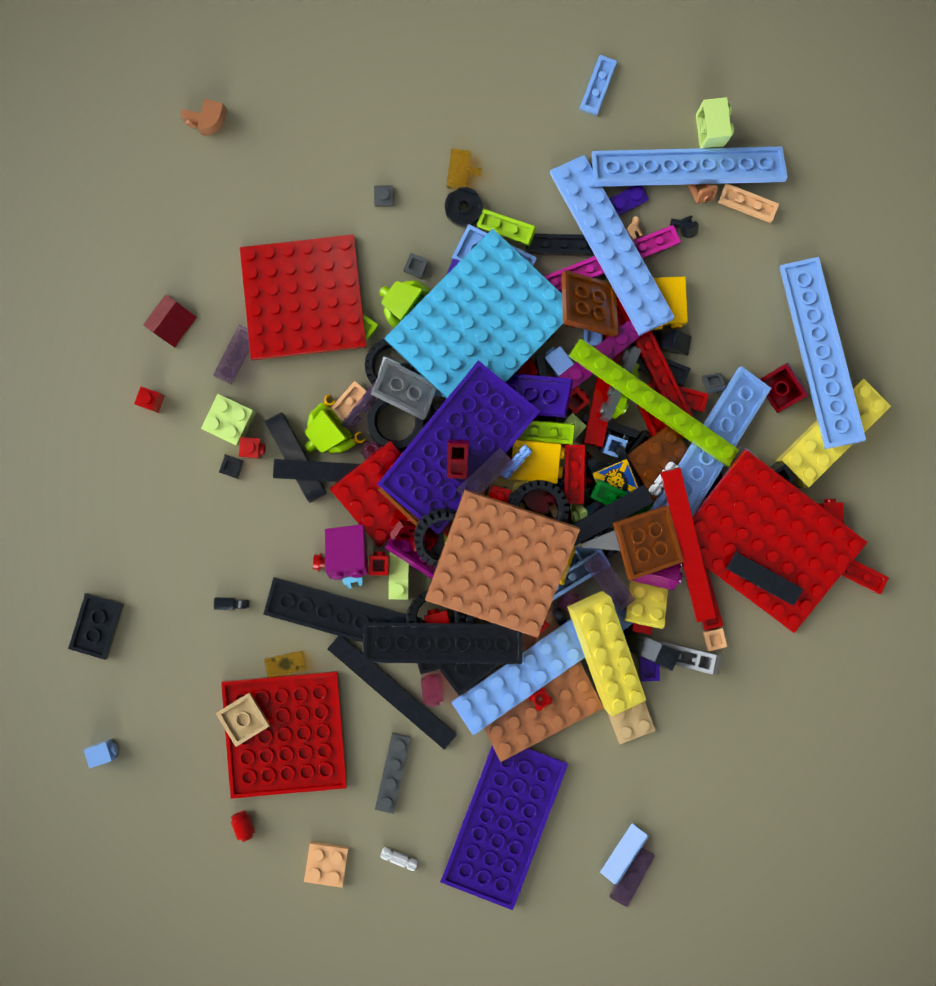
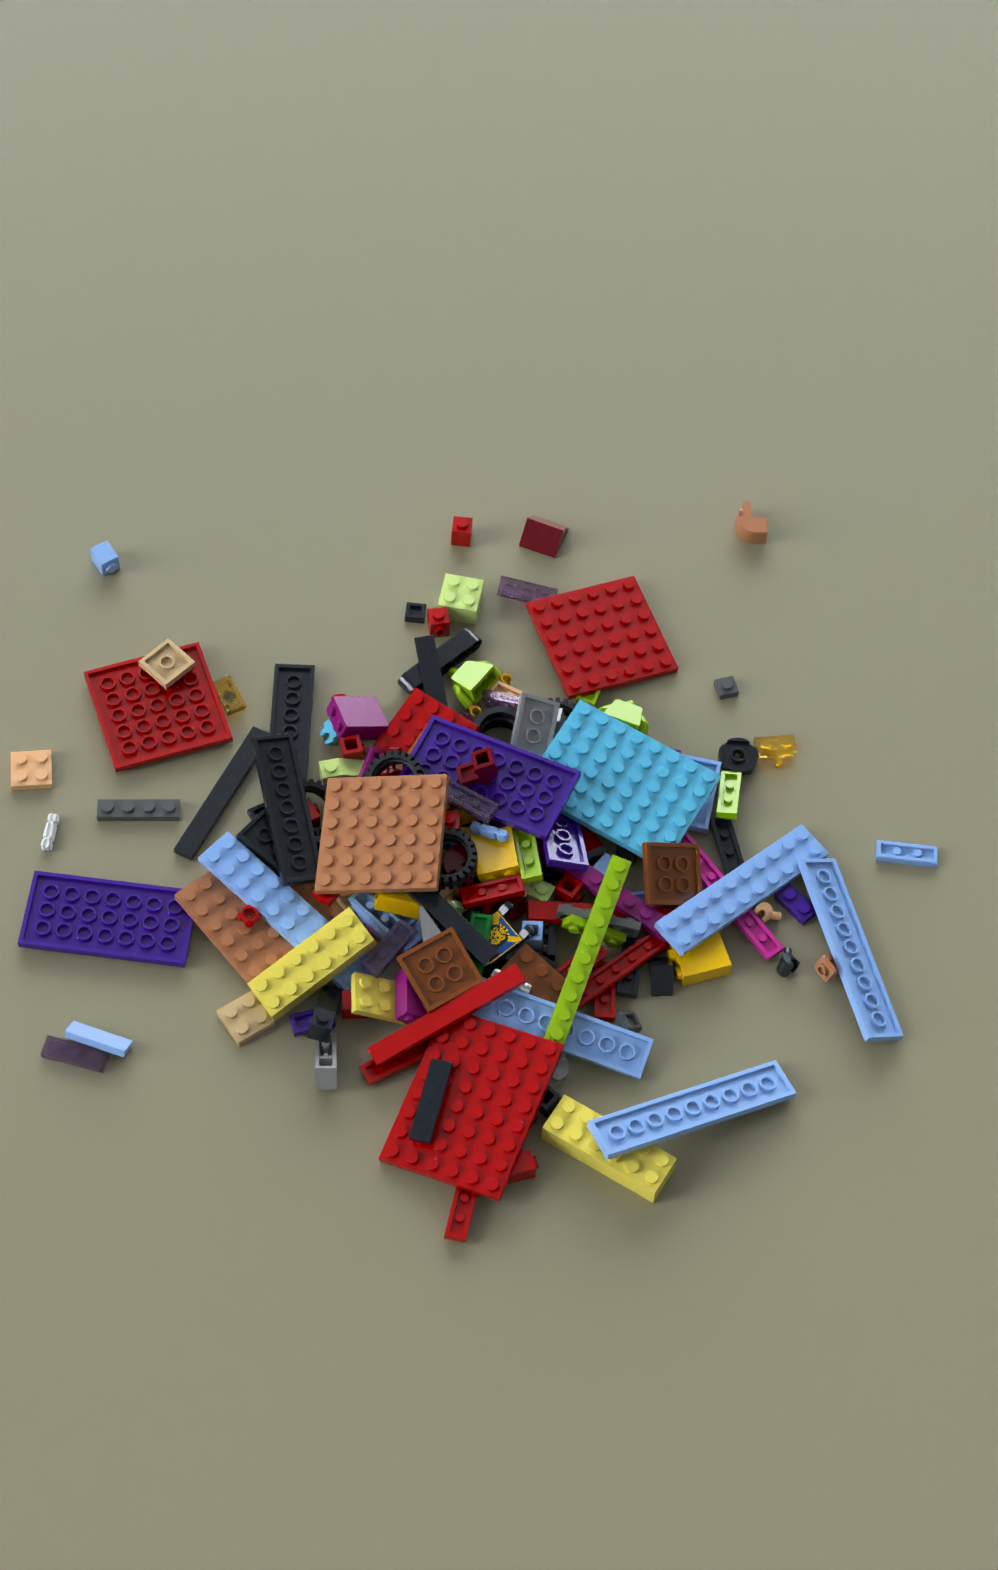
camera: 75 degrees right, 30 degrees down
(96, 626) = (228, 532): black plate -> none
(228, 603) = (278, 636): black bar -> none
(242, 826) = (57, 688): red brick -> none
(415, 265) = (664, 726): dark grey plate -> none
(432, 689) = (234, 816): clear pink brick -> none
(714, 123) = (900, 958): yellowish green brick -> none
(714, 639) = (352, 1080): light nougat plate -> none
(748, 203) = (832, 1016): light nougat plate -> none
(785, 387) = (649, 1087): dark red slope -> none

